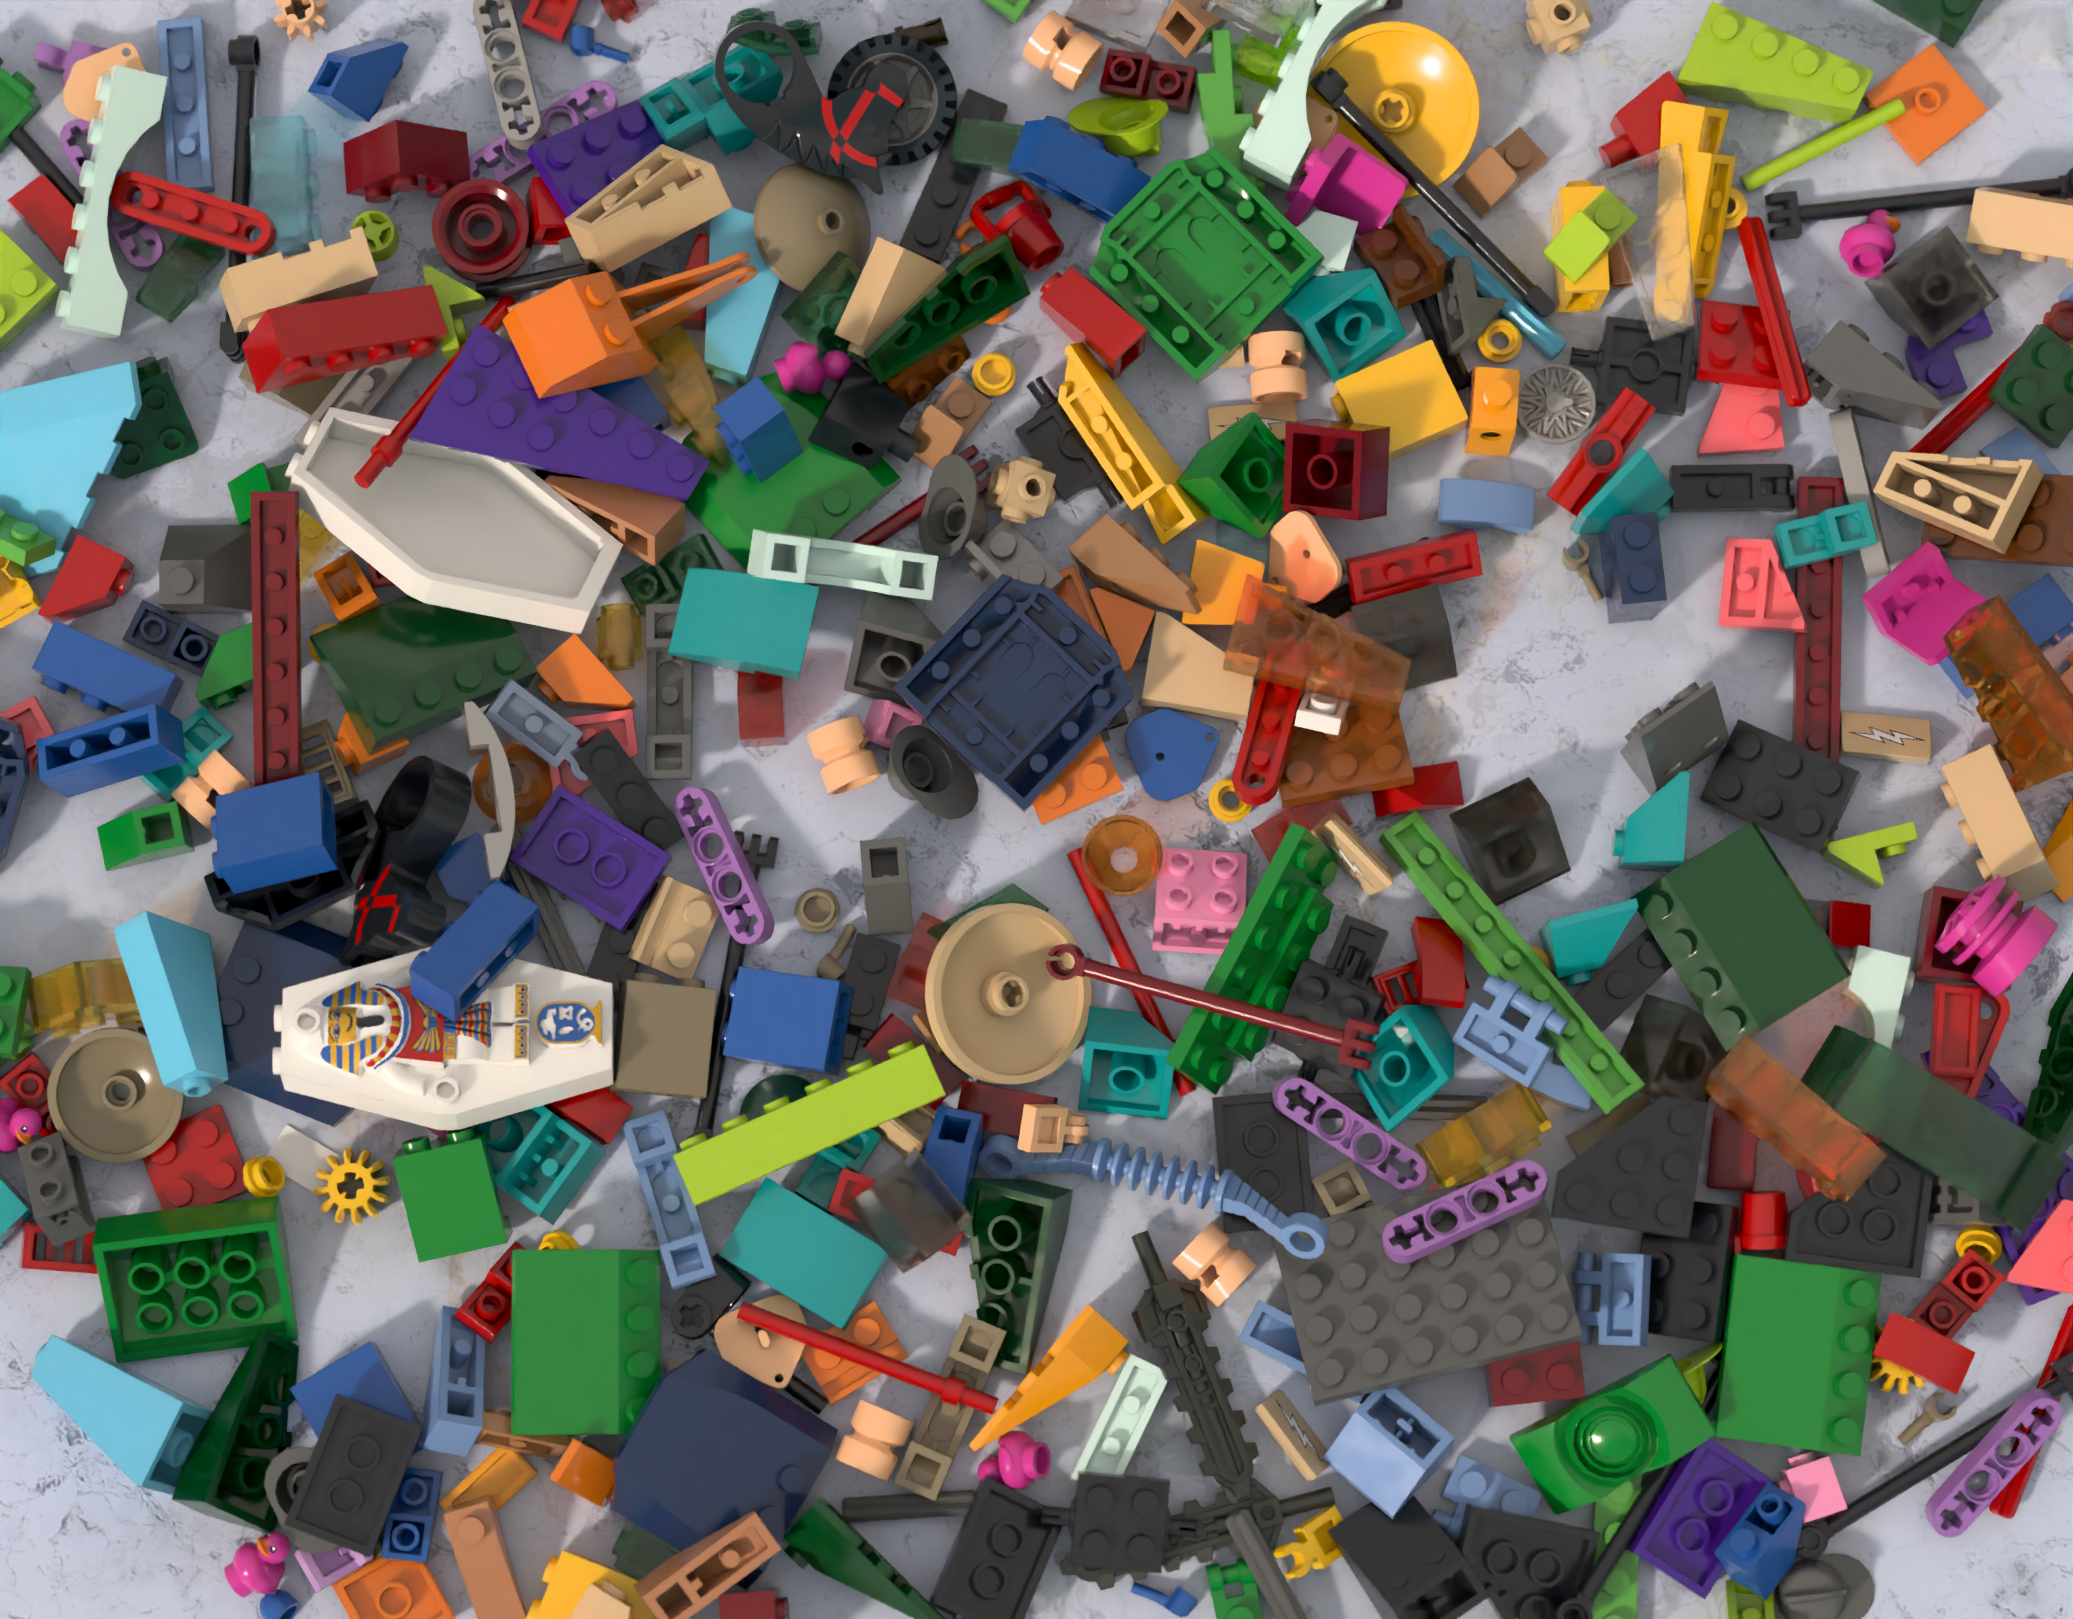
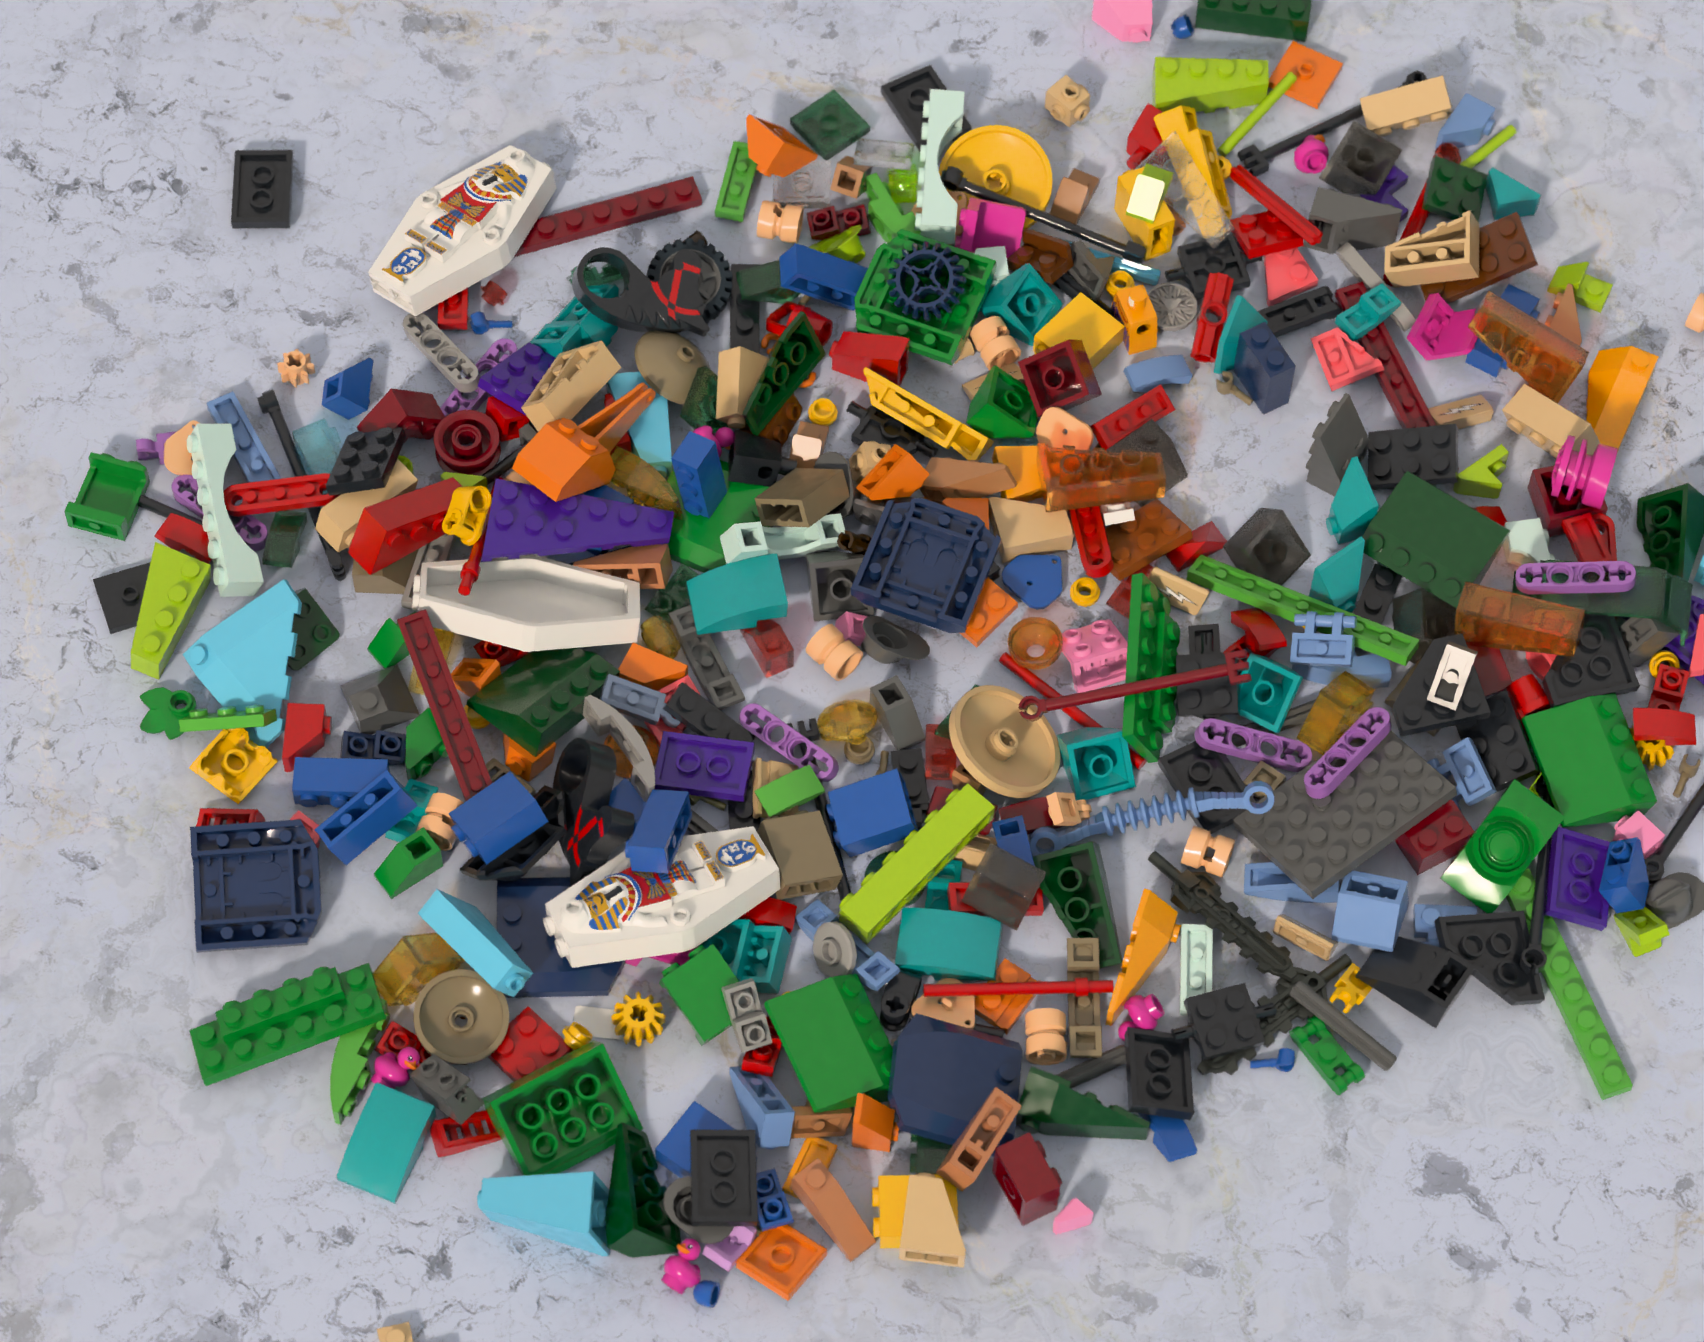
camera: 25 degrees left, 20 degrees down
(318, 218) = (366, 461): none -> black plate
(418, 359) = (467, 512): none -> yellow piece
(486, 1253) = (746, 1015): none -> light grey slope
(648, 1201) = (834, 949): none -> light grey wheel
(687, 947) = (789, 790): none -> bright green slope
(816, 866) = (847, 721): none -> clear yellow dish
(893, 513) = (802, 497): none -> dark tan brick
(933, 609) = (852, 542): none -> dark brown pin
(1033, 531) = (893, 476): none -> orange slope
(1221, 263) = (919, 291): none -> dark blue gear
(1652, 1175) = (1452, 675): none -> slope
(1904, 1088) = (1575, 572): none -> medium lavender beam

